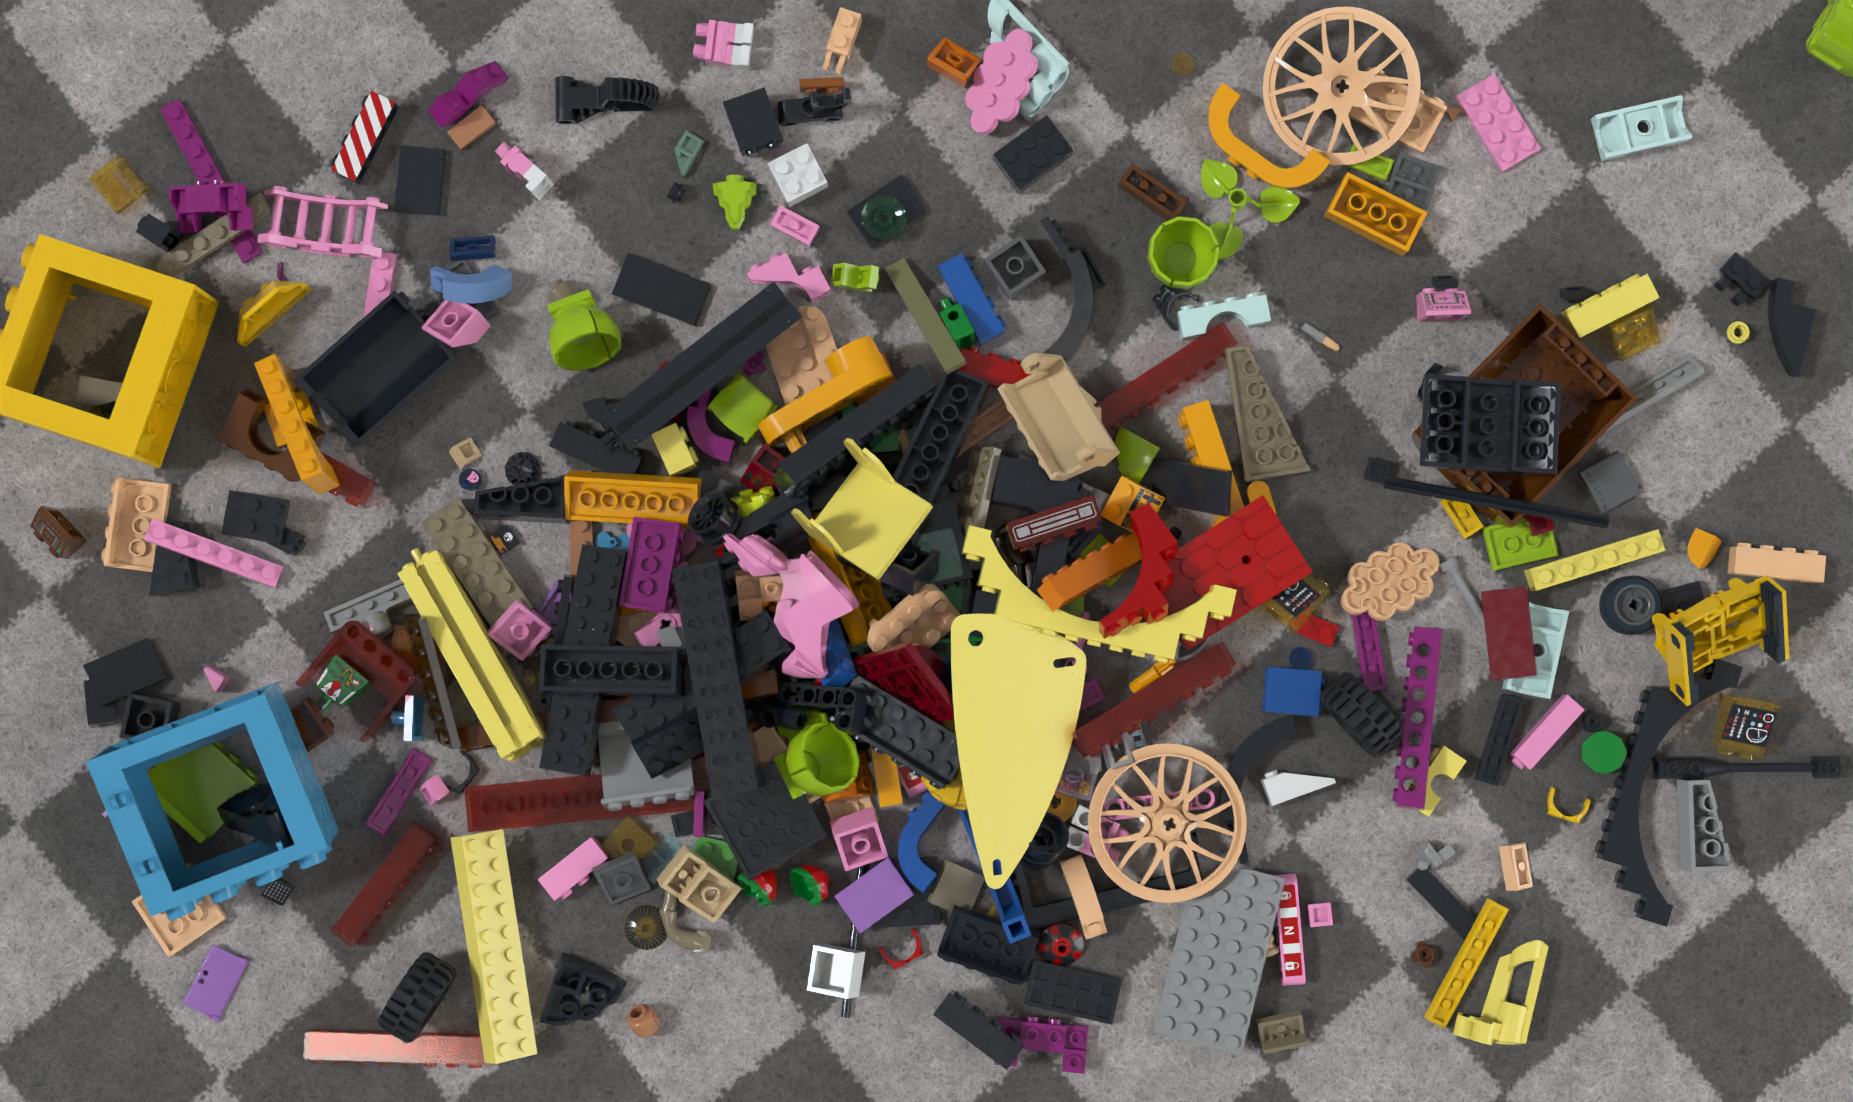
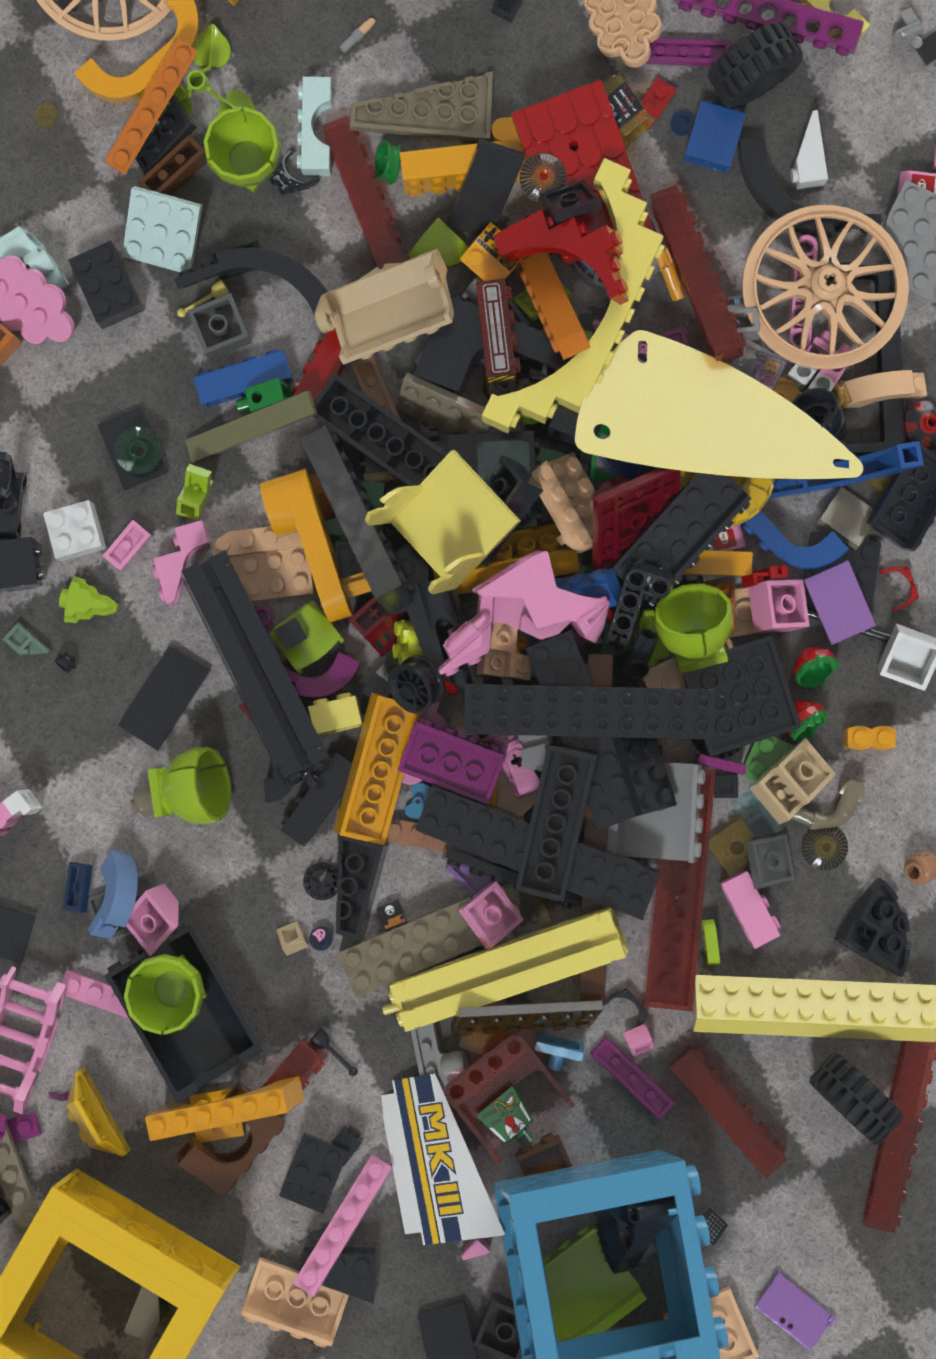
camera: 75 degrees left, 0 degrees up
(282, 624) = (433, 1167): none -> sticker
(376, 499) = (321, 1041): none -> black hinge
(388, 348) = (164, 994): none -> lime plate
(536, 838) = (710, 942): none -> lime beam
(740, 393) = (291, 634): none -> black tile
(752, 941) = (874, 738): none -> light orange brick
(885, 821) = (767, 574): none -> red piece
(1049, 259) = (218, 290): none -> light yellow hinge
(1069, 857) = (842, 394): none -> clear yellow tile
(1093, 195) = (161, 229): none -> light aqua plate
(1186, 182) = (171, 130): none -> black wing
(1190, 566) = (570, 201): none -> black plate
(1202, 390) = (387, 161): none -> green piece
(1206, 159) = (150, 105): none -> orange brick
(1219, 528) = (529, 175): none -> dish

